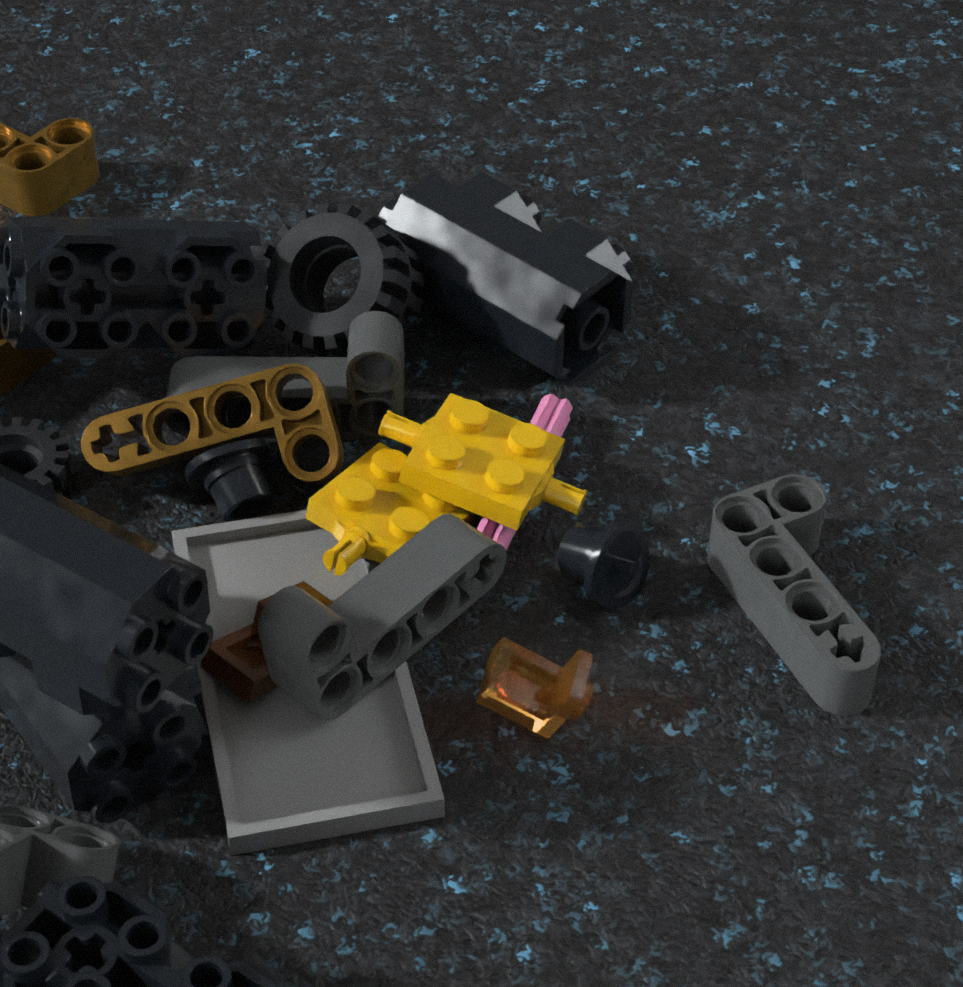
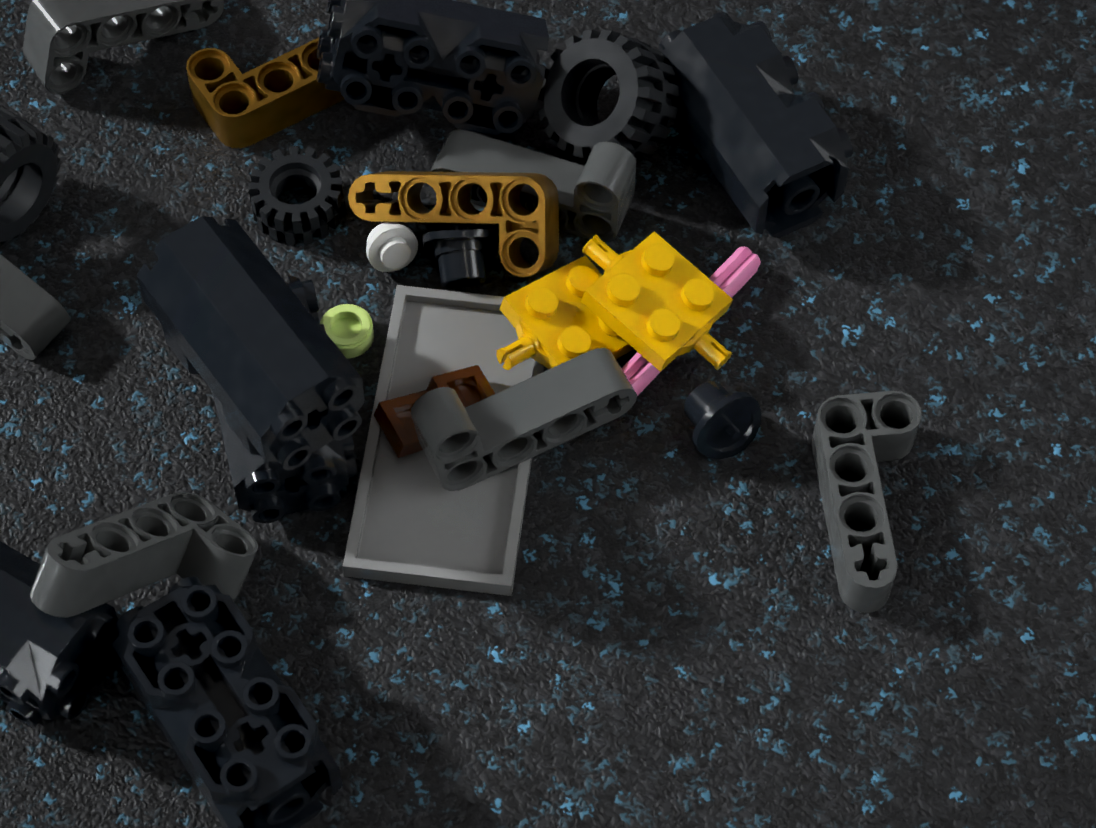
camera: 20 degrees right, 15 degrees up
(149, 494) = (391, 246): none -> white plate
(535, 689) = (617, 514): clear orange bracket -> none

